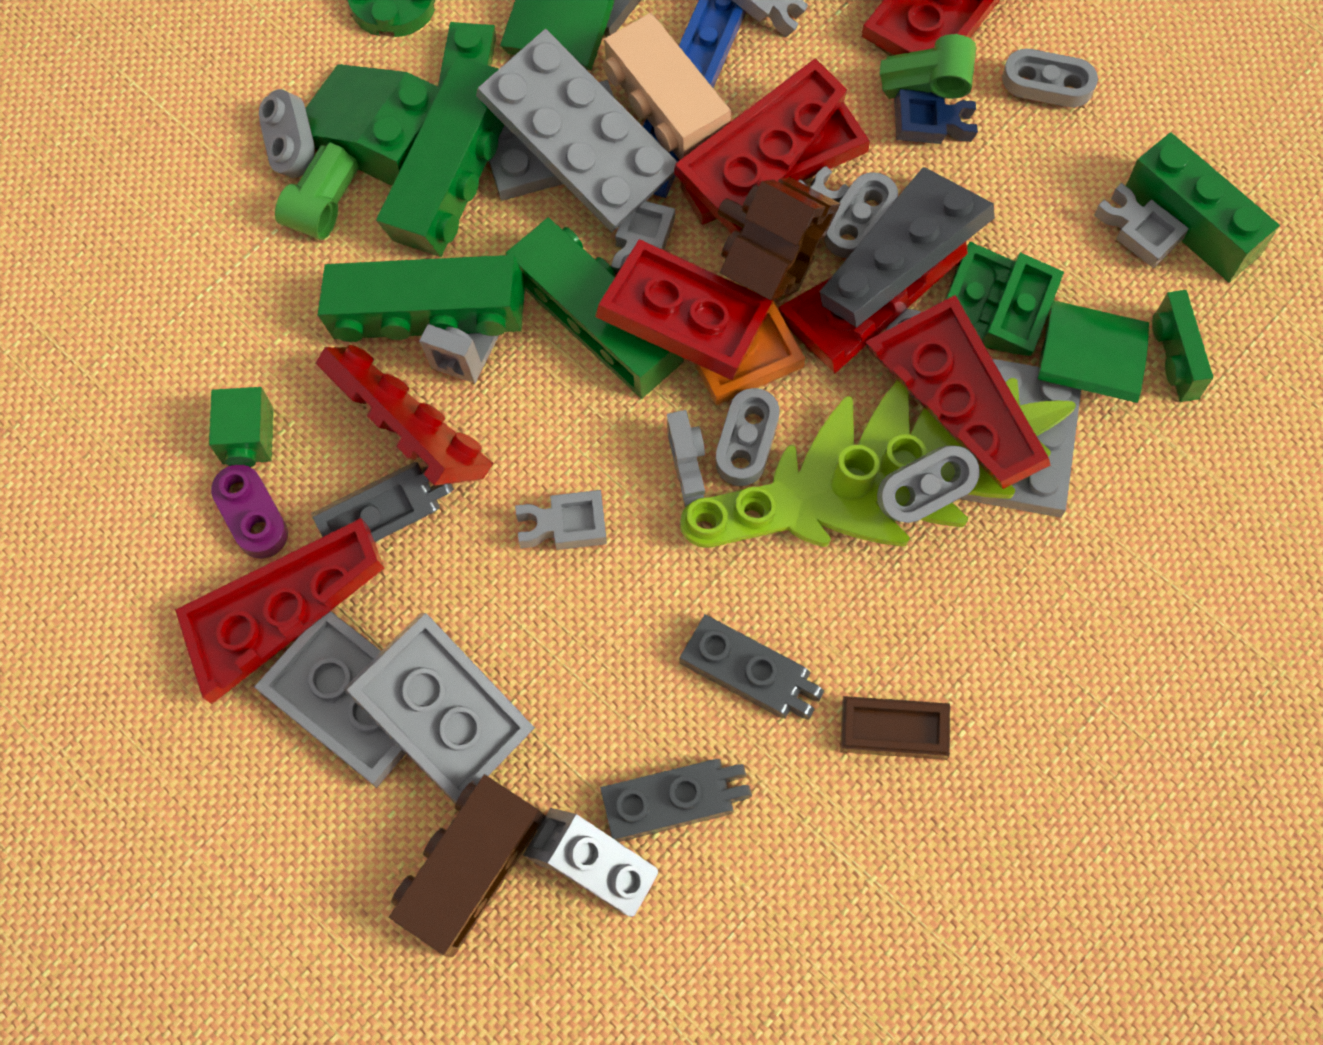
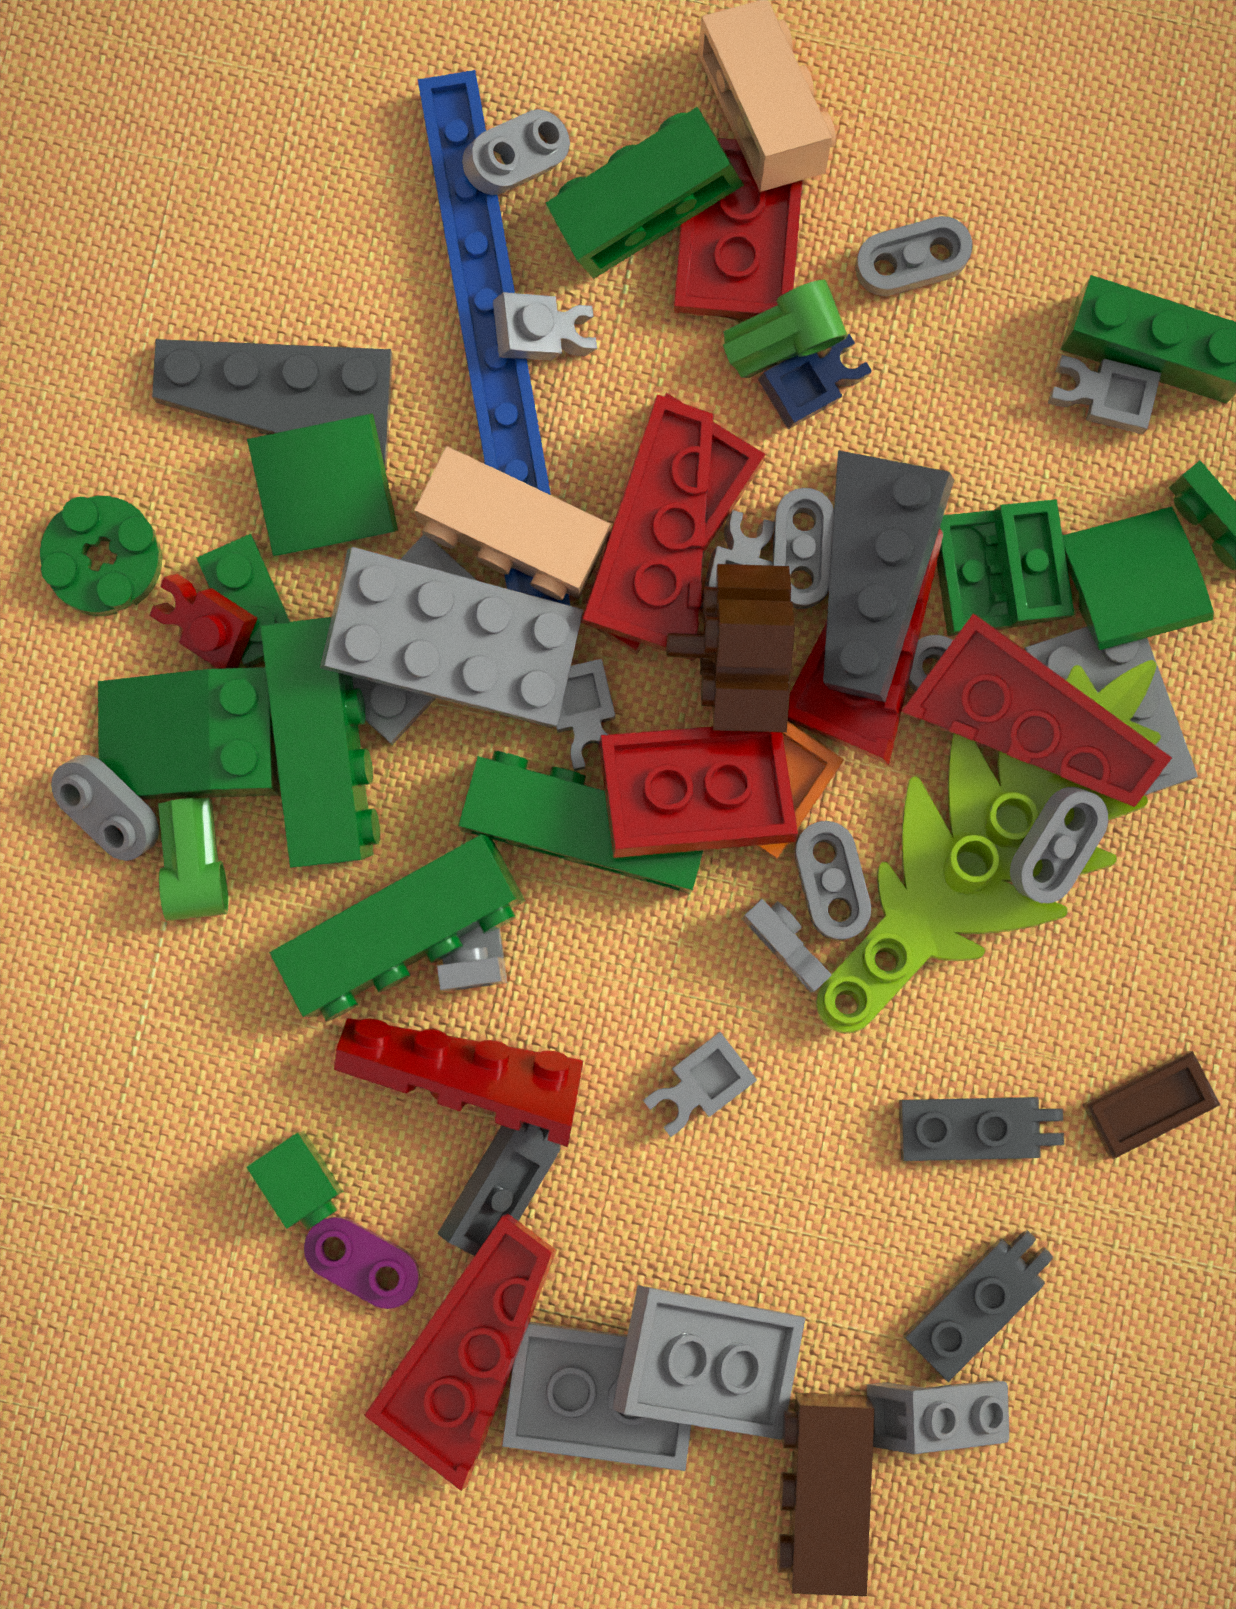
camera: 40 degrees left, 15 degrees up
(429, 54) = (210, 622): none -> red plate

